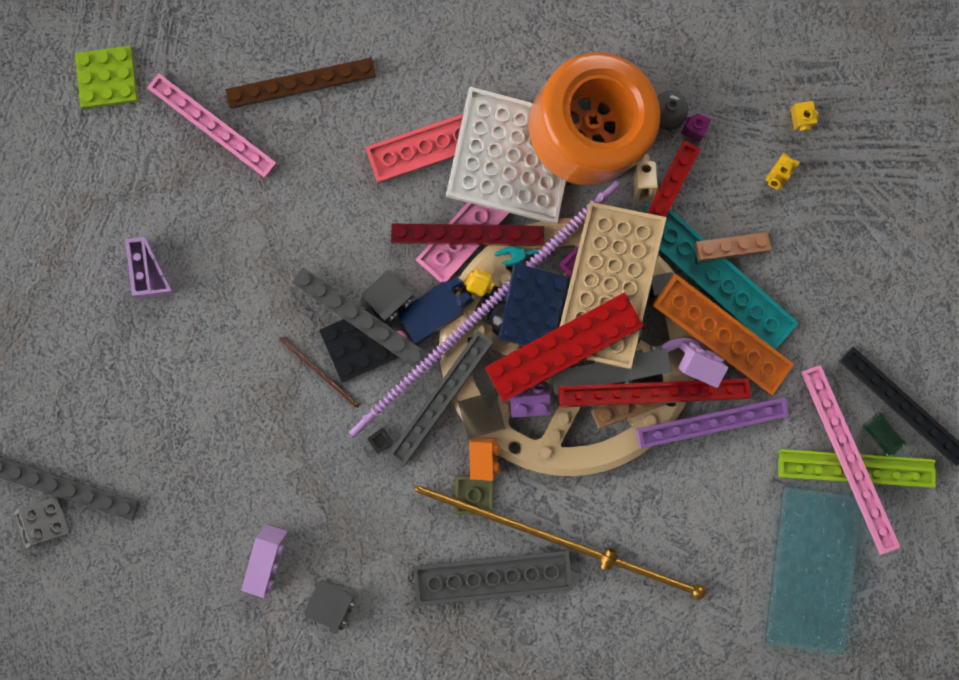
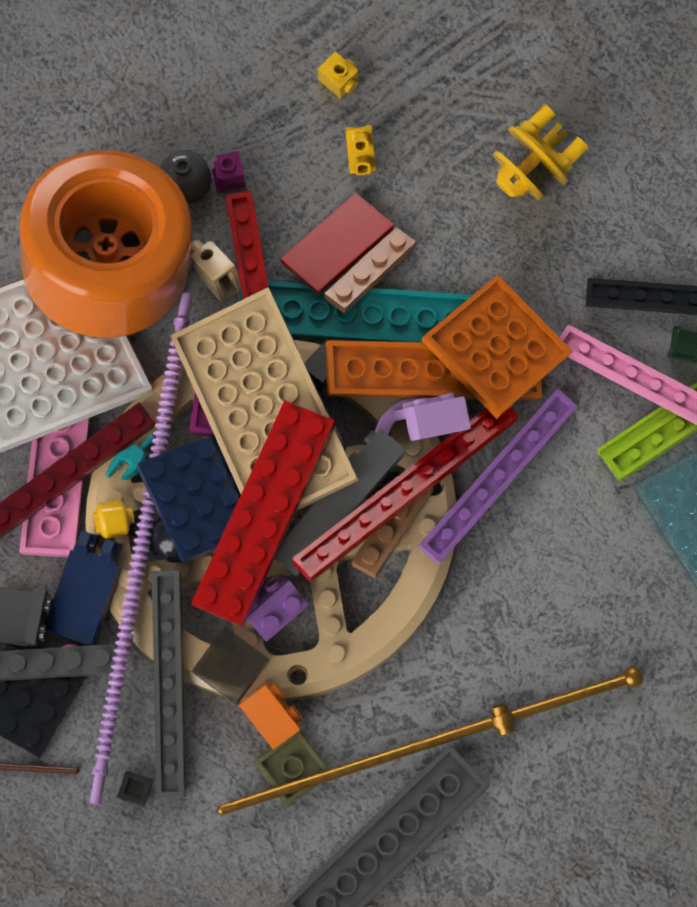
camera: 35 degrees left, 10 degrees down
(725, 216) = (337, 243): none -> red tile
(770, 348) = (497, 346): none -> orange plate
(885, 253) = (540, 152): none -> yellow piece

